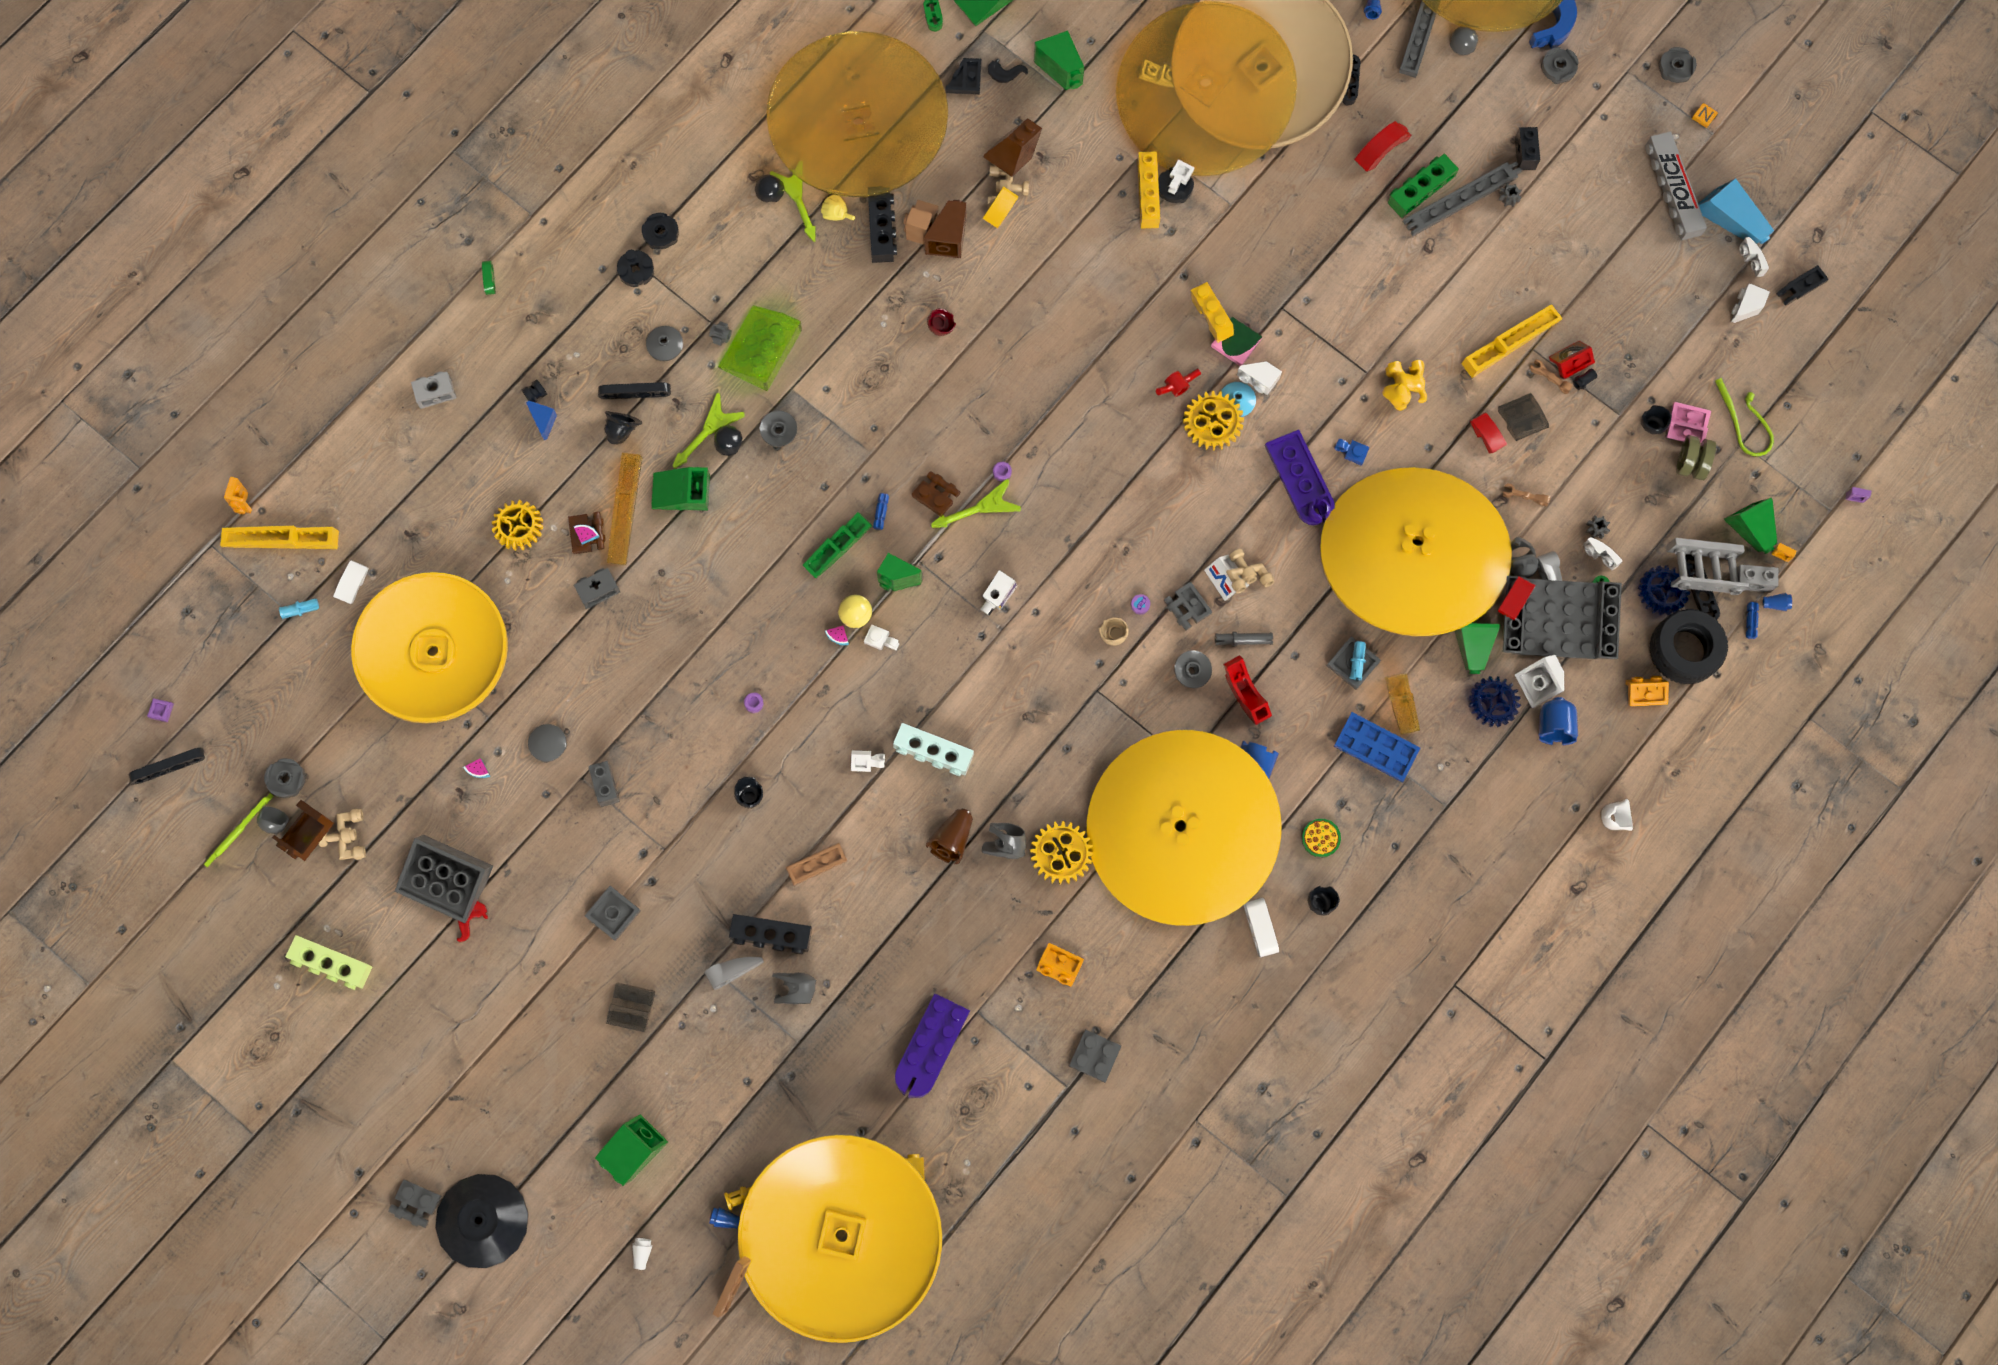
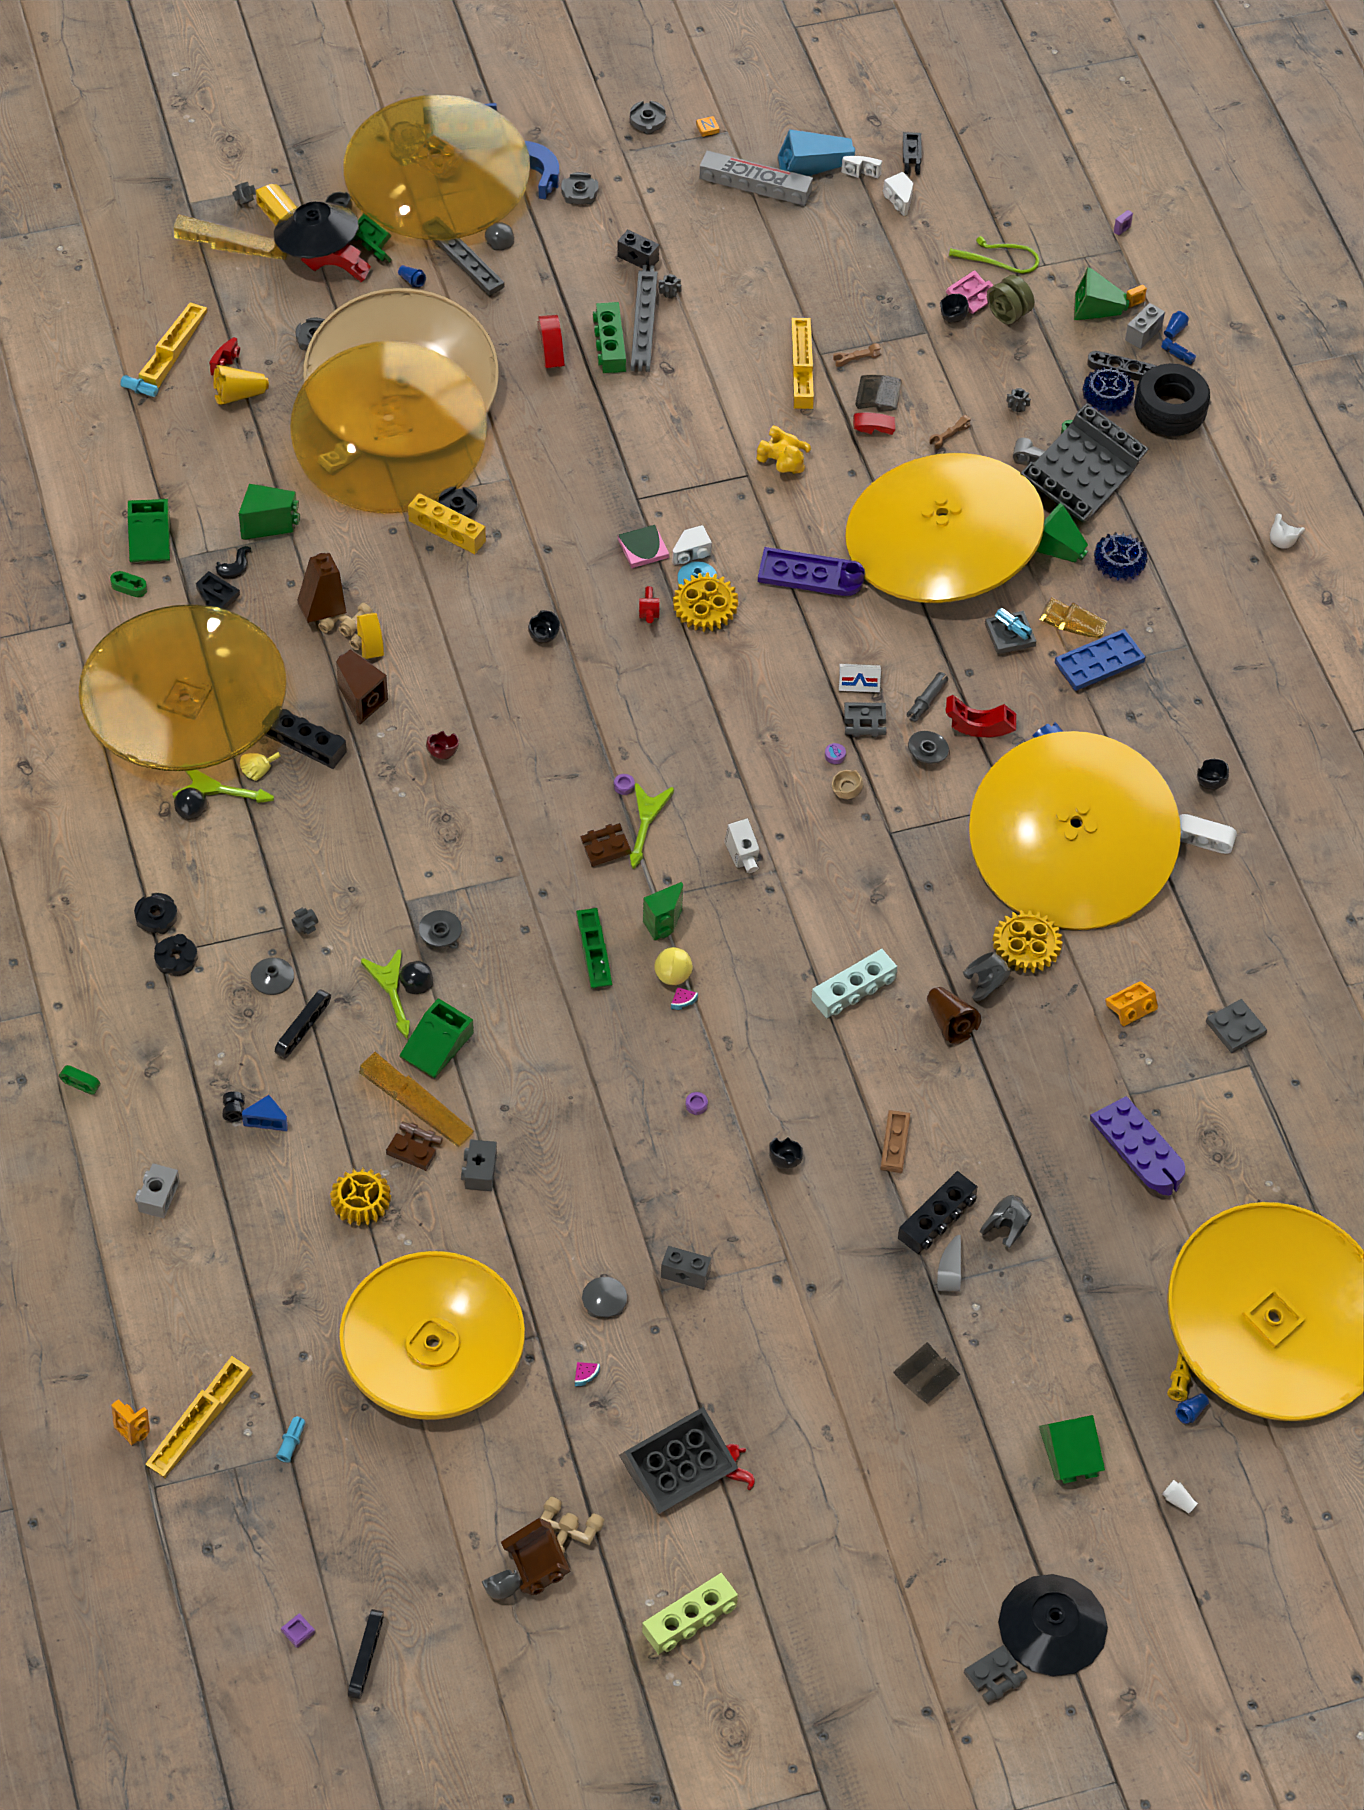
camera: 55 degrees left, 20 degrees down
(237, 831) = (481, 1592): lime piece -> none
(280, 768) = (463, 1563): dark grey plate -> none
(350, 582) = (302, 1374): white slope -> none
(585, 533) = (418, 1140): dark pink tile -> none
(612, 913) = (821, 1334): dark grey plate -> none
(619, 426) = (331, 1054): black piece -> none
(732, 1286) = (1267, 1429): medium nougat tile -> none
(761, 346) = (344, 897): clear neon green slope -> none
(864, 761) = (823, 1043): white plate -> none
(879, 638) = (712, 968): white plate -> none
(881, 511) = (587, 896): blue axle -> none
(919, 221) = (331, 703): medium nougat brick -> none
(1101, 321) = (544, 626): none -> black hair
(1180, 174) = (455, 489): white plate -> none
(1209, 305) = (618, 540): yellow arch -> none
(1247, 573) = (870, 657): tan piece -> none
(1321, 838) = (1154, 746): tile -> none
(1354, 451) = (815, 523): blue plate -> none
(1516, 598) = (1048, 475): red slope -> none
(1524, 565) = (1013, 458): dark grey helmet -> none
(1541, 680) = (1127, 514): white slope -> none
(1558, 722) = (1173, 521): blue cylinder -> none
(1573, 359) = (853, 330): red panel -> none
(1584, 379) = (878, 333): black pin -> none
(1596, 548) = (1049, 407): white slope -> none
(1647, 691) = (1189, 451): light orange bracket -> none
(1714, 551) = (1103, 334): light grey fence -> none

